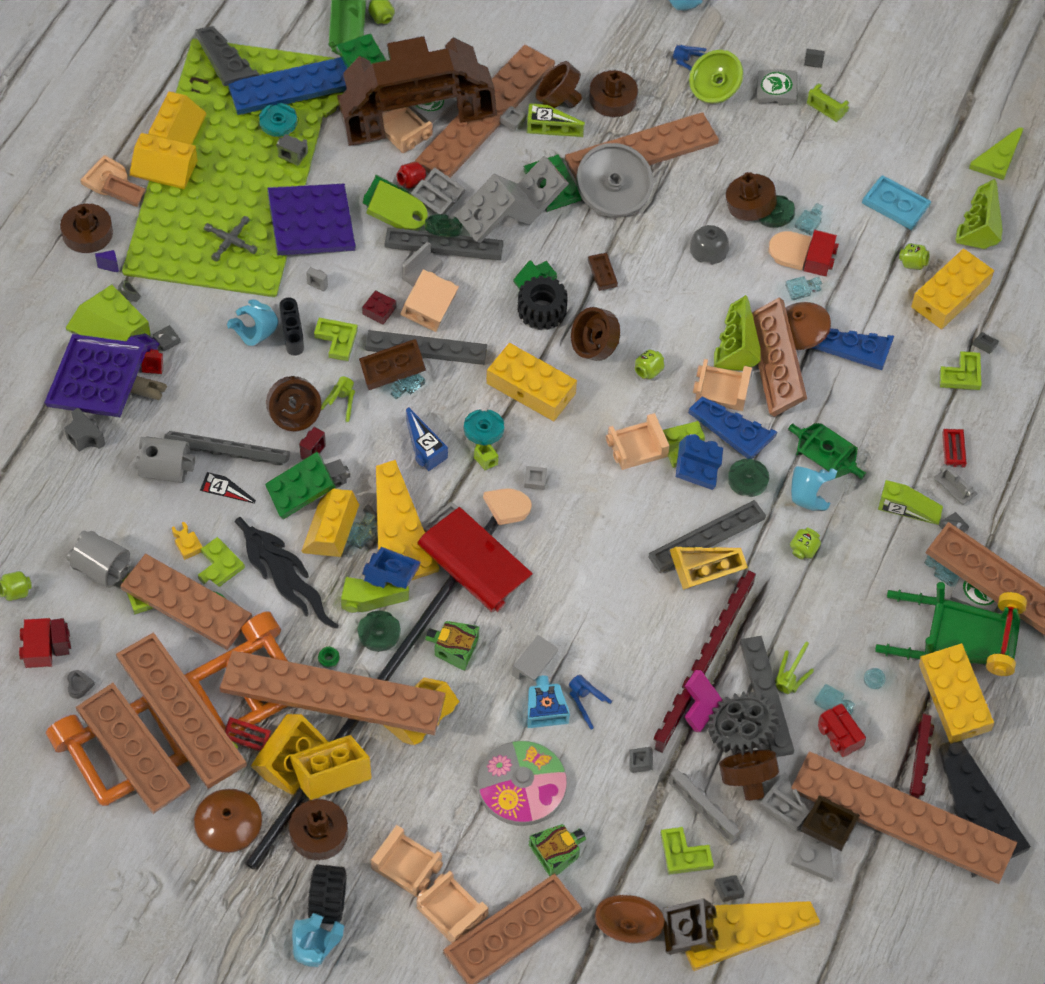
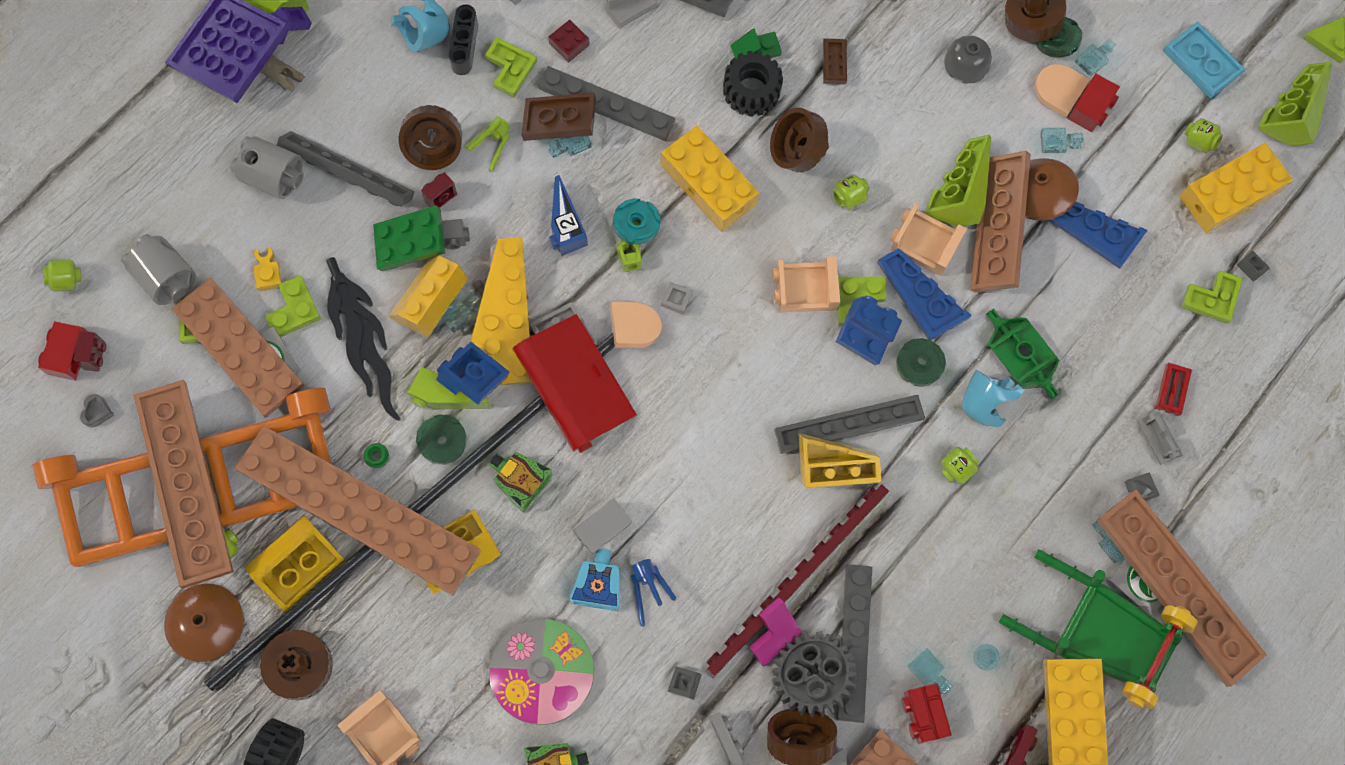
camera: 15 degrees right, 15 degrees up
(83, 432) = (195, 108): dark grey brick -> none
(133, 748) = (119, 512): nougat plate -> none
(153, 362) = (297, 43): red tile -> none
(166, 338) = (323, 18): dark grey tile -> none
(223, 486) = (329, 214): sticker -> none
(228, 728) = (247, 511): red tile -> none
(331, 767) = (330, 595): yellow slope -> none
(429, 300) = (626, 47): light nougat panel -> none
(786, 681) = (883, 632): lime plant -> none
(907, 502) = (1098, 447): lime slope -> none

